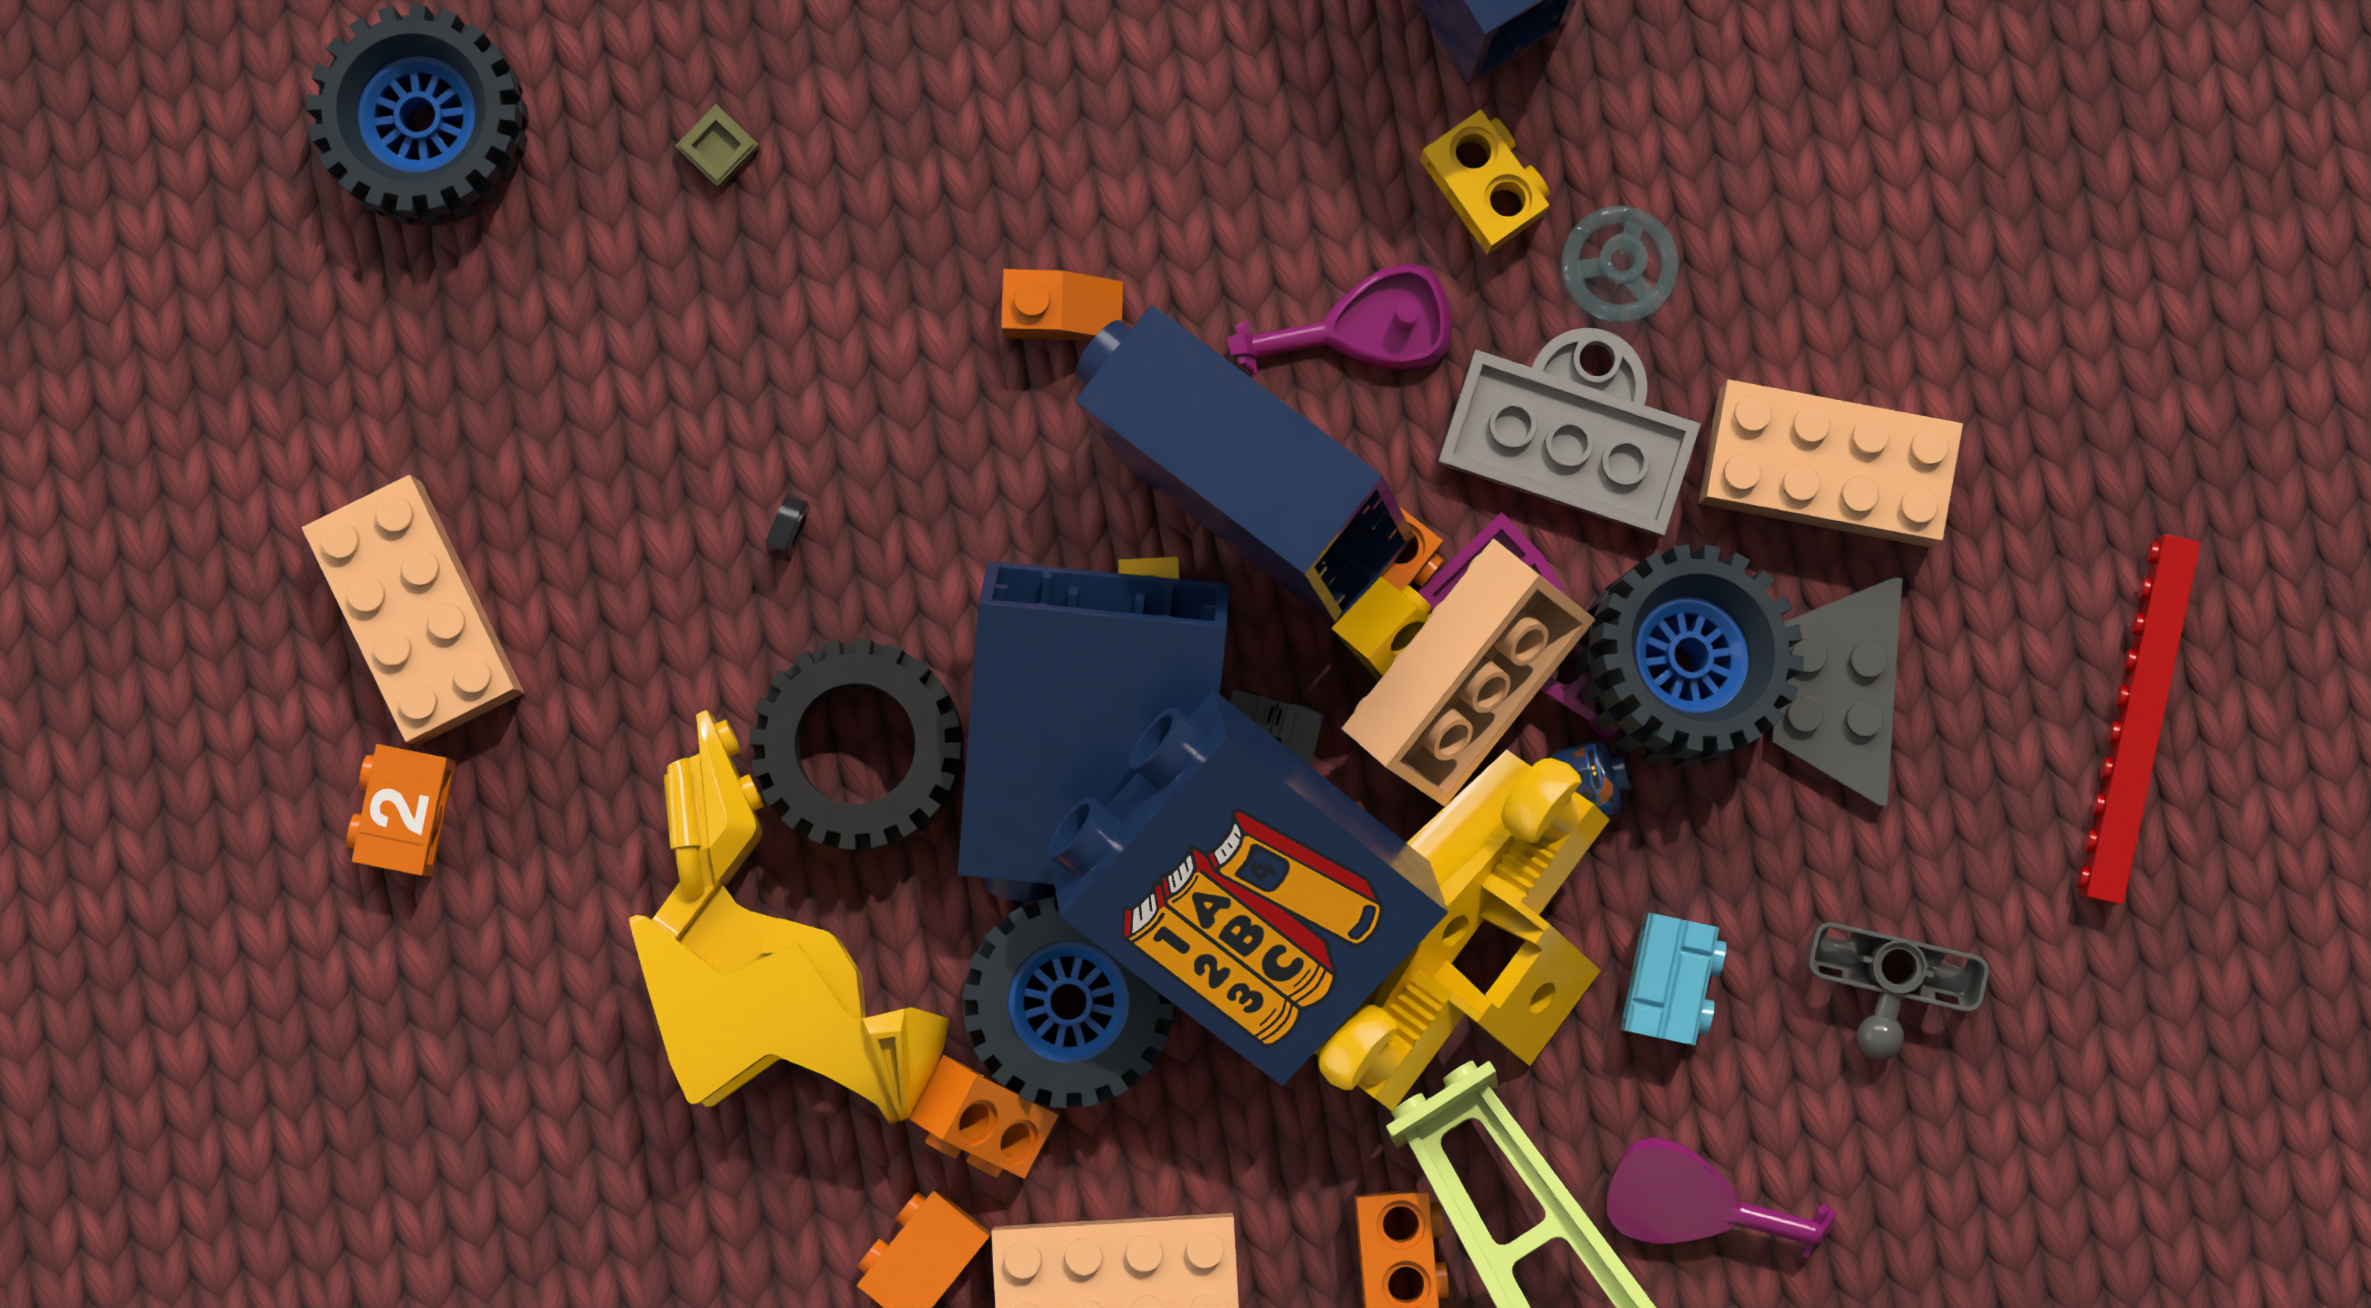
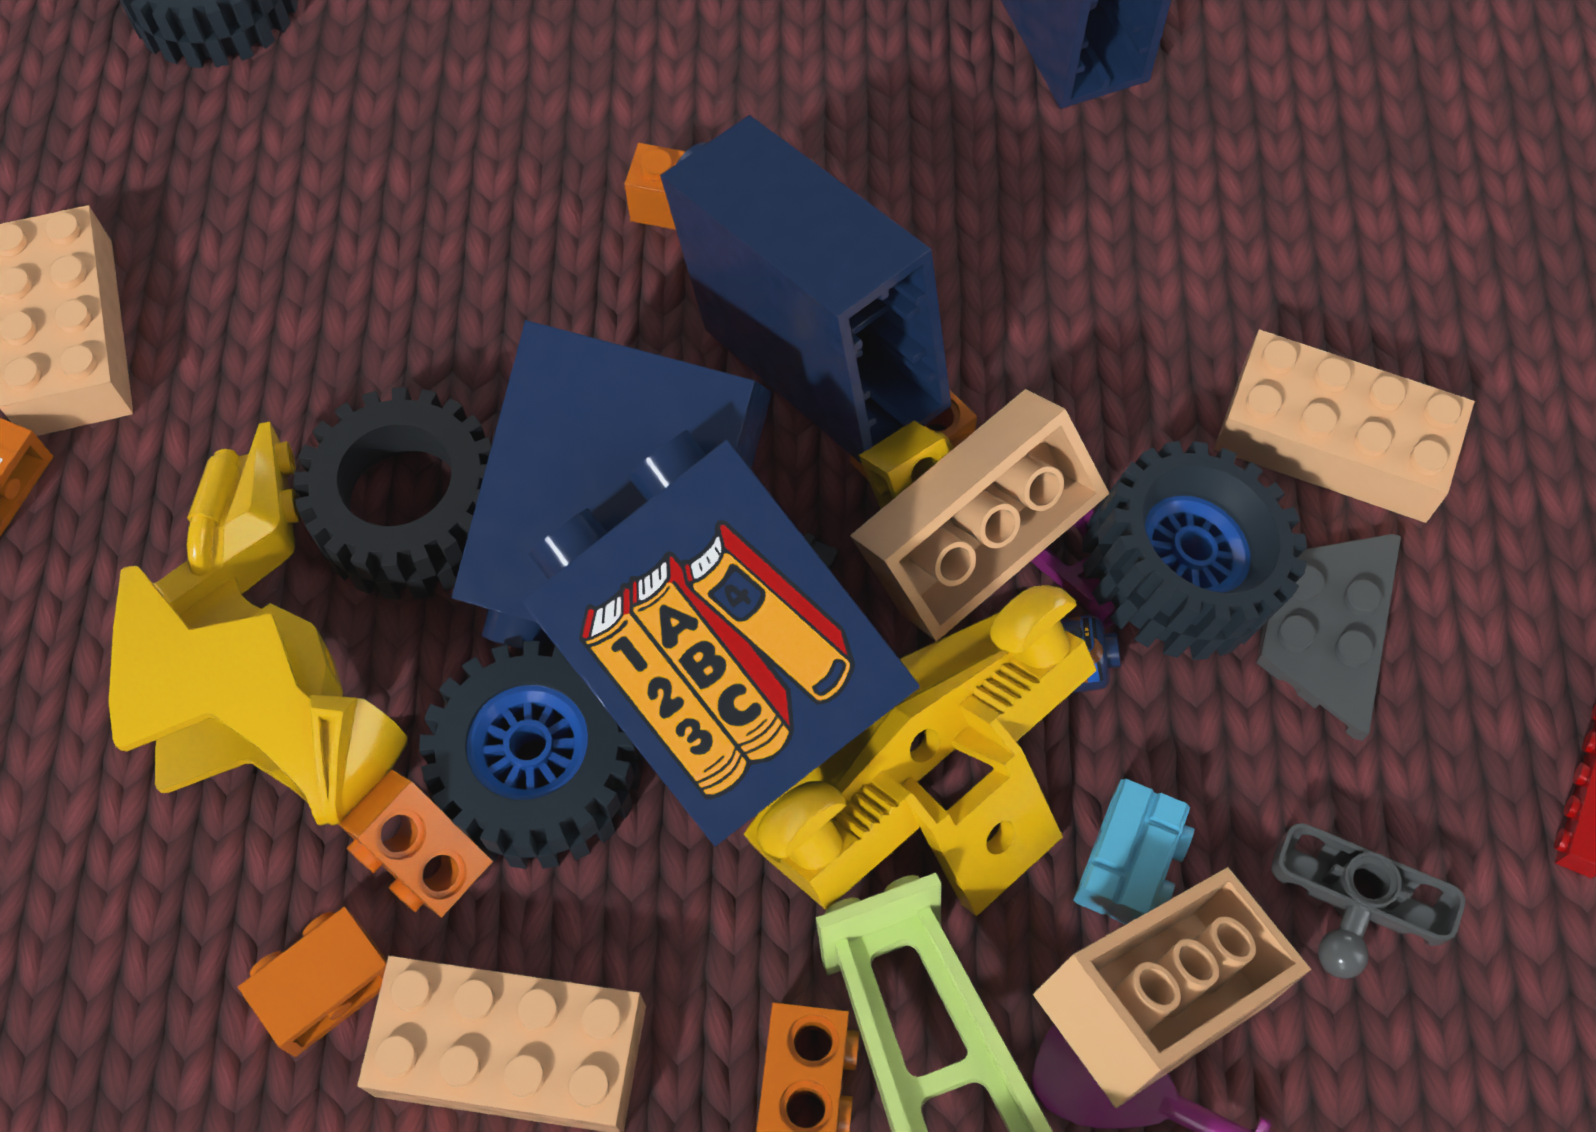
camera: 15 degrees right, 20 degrees down
(717, 146) = (436, 48): olive tile -> none
(787, 527) = (399, 318): black tile -> none
(1386, 321) = (972, 257): magenta piece -> none
(1471, 188) = (1063, 165): yellow brick -> none
(1572, 433) = (1106, 365): light grey plate -> none
(1627, 243) = (1171, 246): clear light blue piece -> none
(1723, 1114) = (1169, 984): none -> light nougat brick

